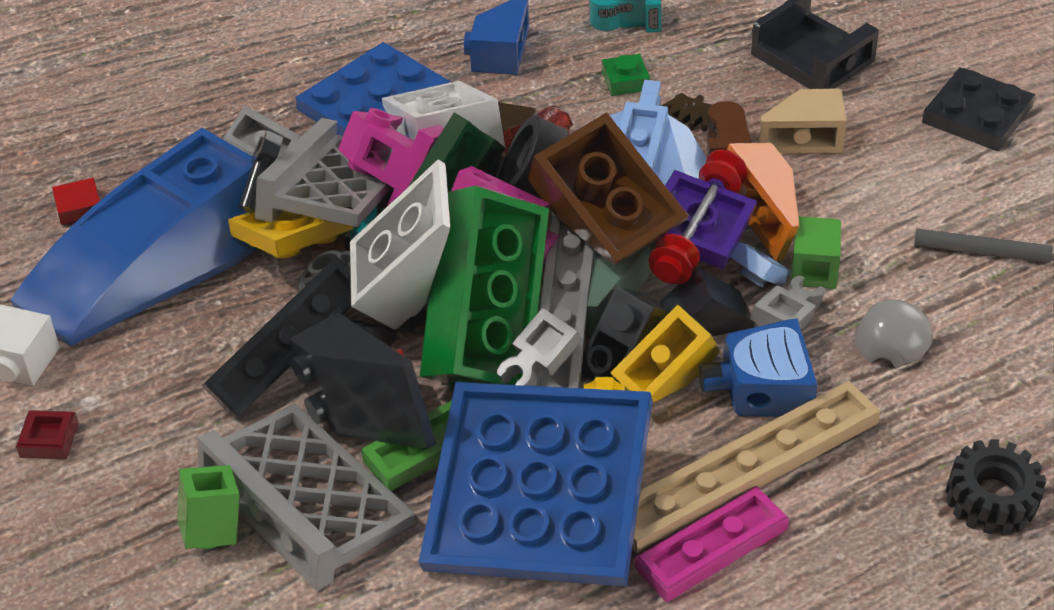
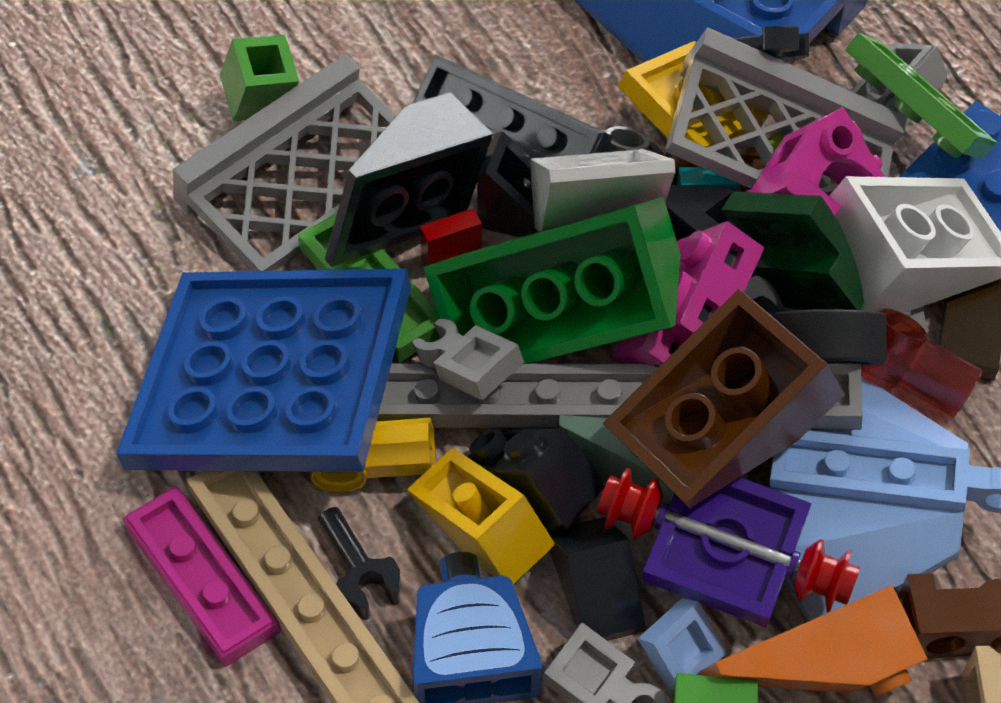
camera: 85 degrees right, 10 degrees up
(309, 107) = (918, 98): none -> bright green plate
(703, 443) = (359, 567): none -> black bar

